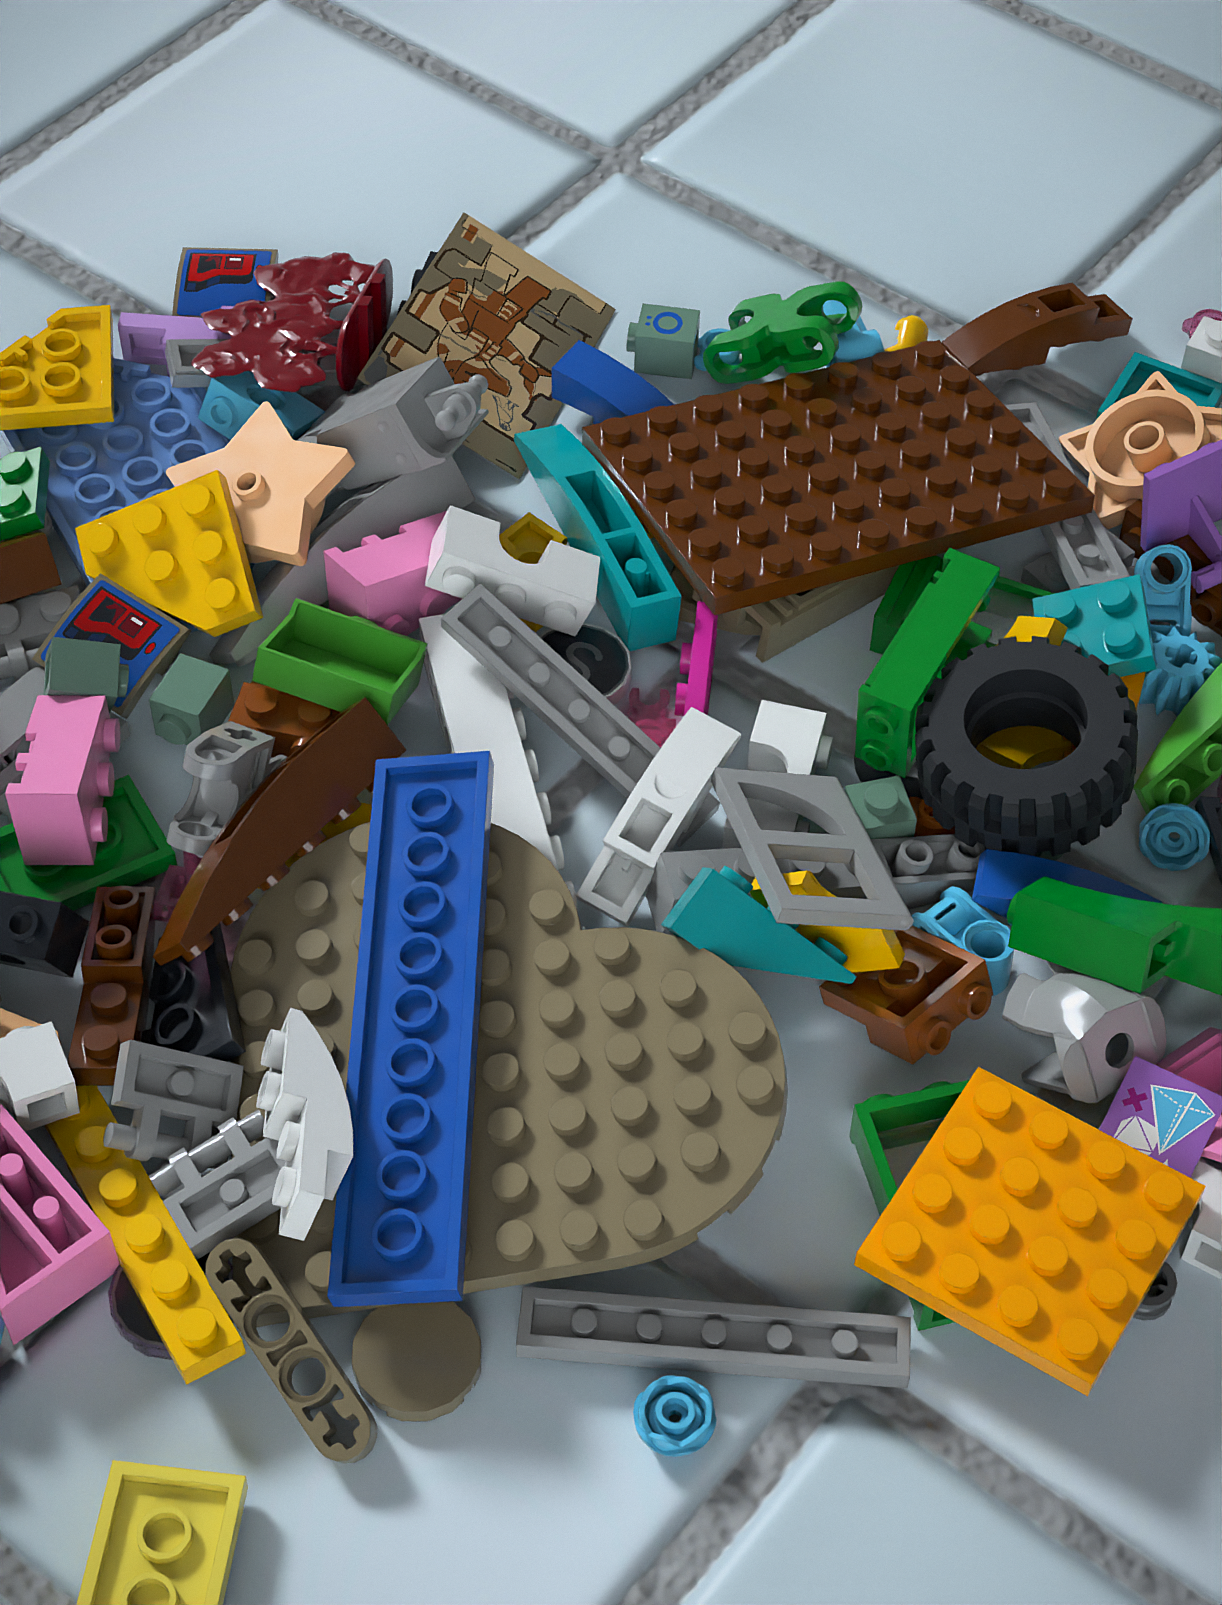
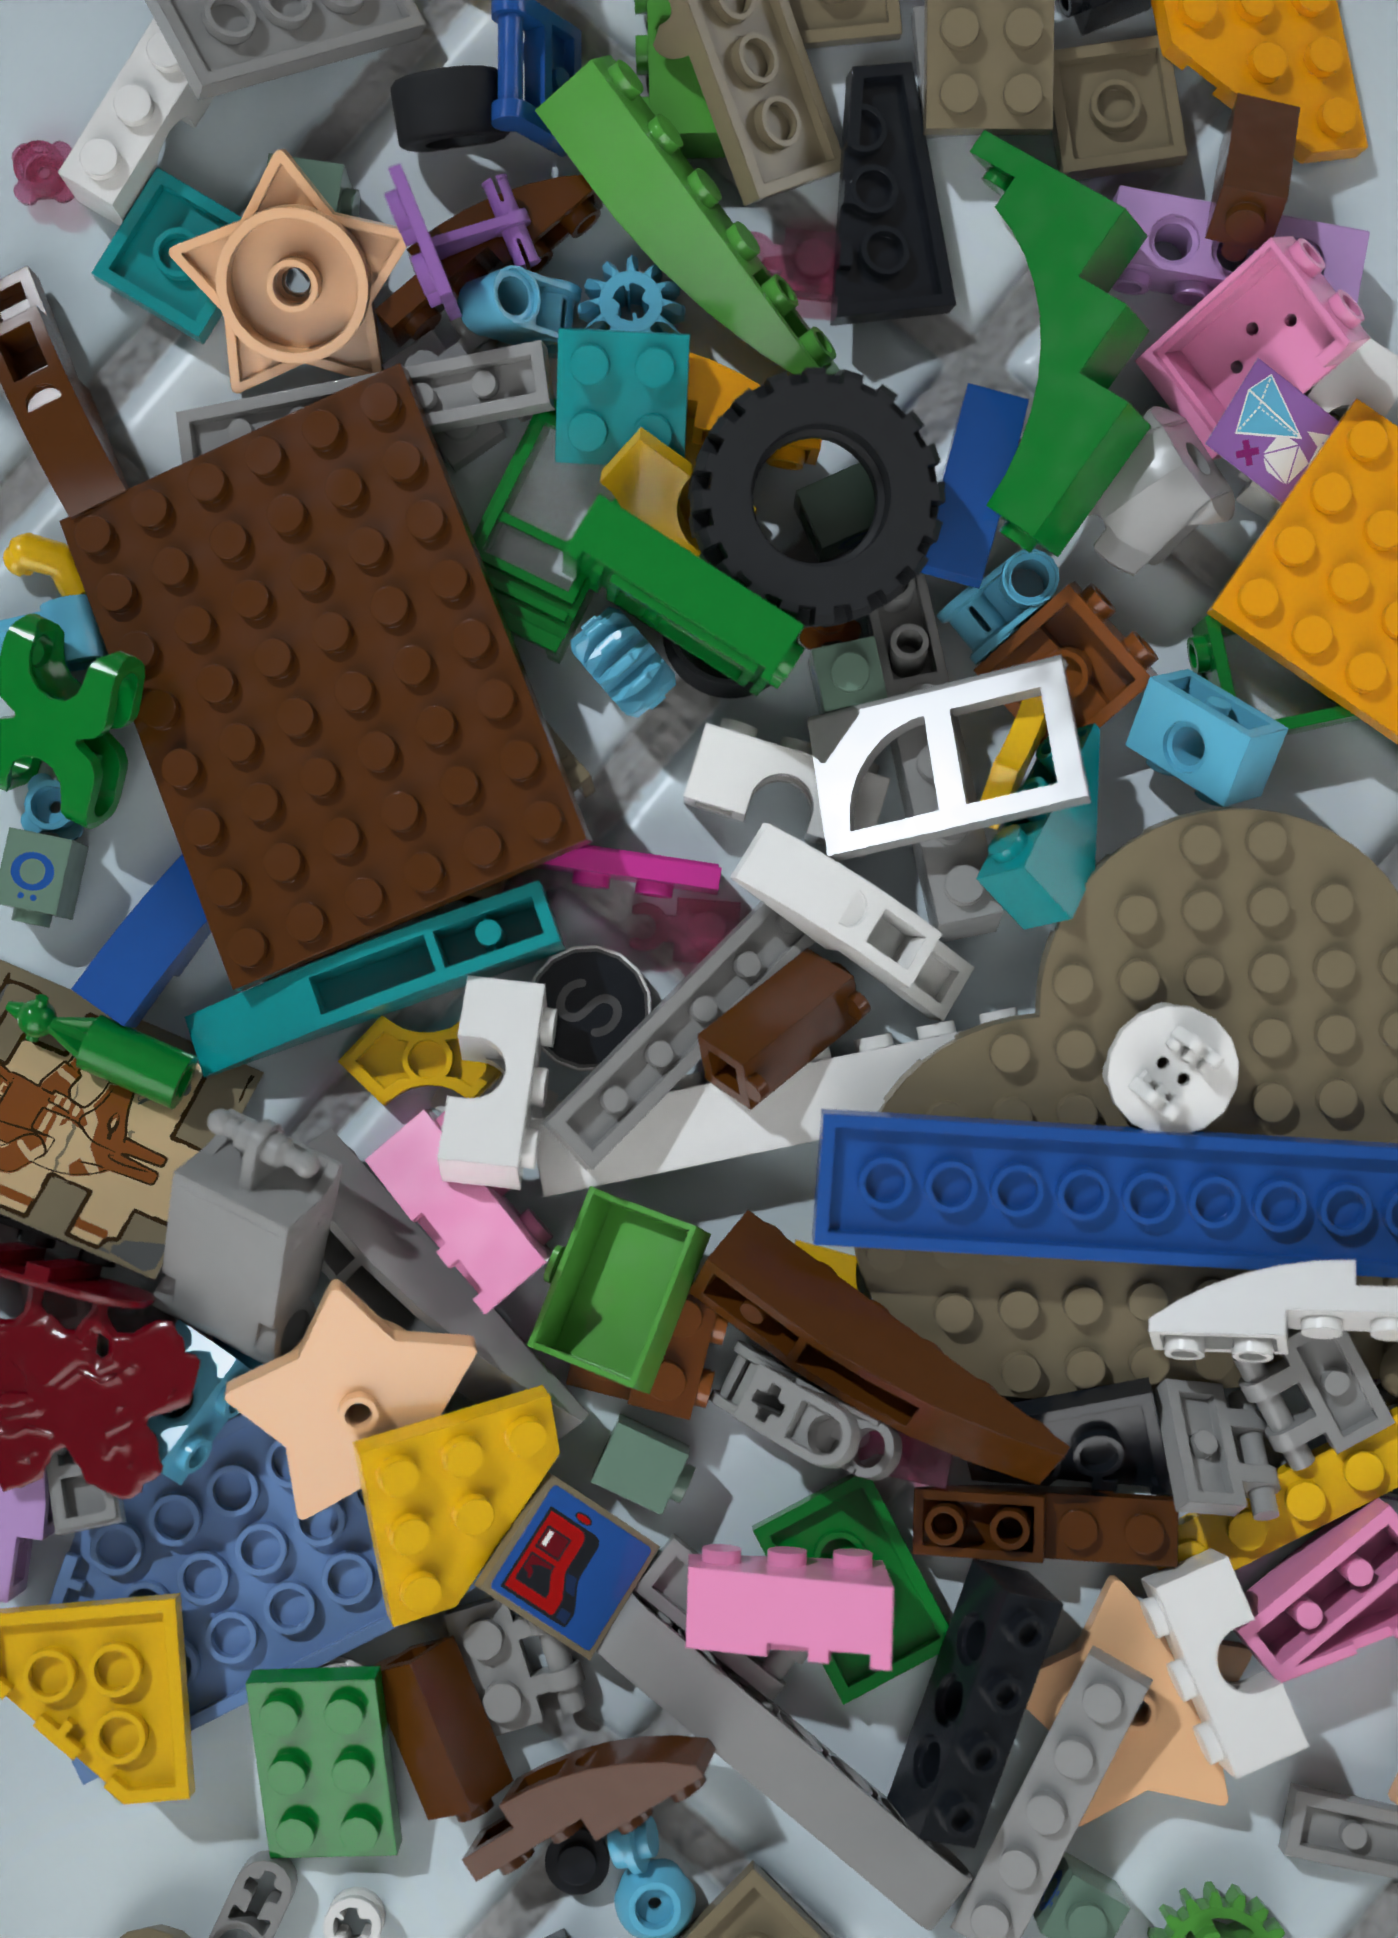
camera: 90 degrees left, 35 degrees up
(85, 669) = (646, 1595): sand green brick -> none
(530, 377) = (112, 1051): none -> green wheel
(555, 1034) = (1192, 1046): none -> white plate
(564, 764) = (780, 1027): none -> reddish brown brick
(853, 1071) = (1237, 738): none -> medium azure brick
(859, 656) = (623, 662): none -> medium azure gear
(1174, 852) = (870, 350): medium azure plate -> none

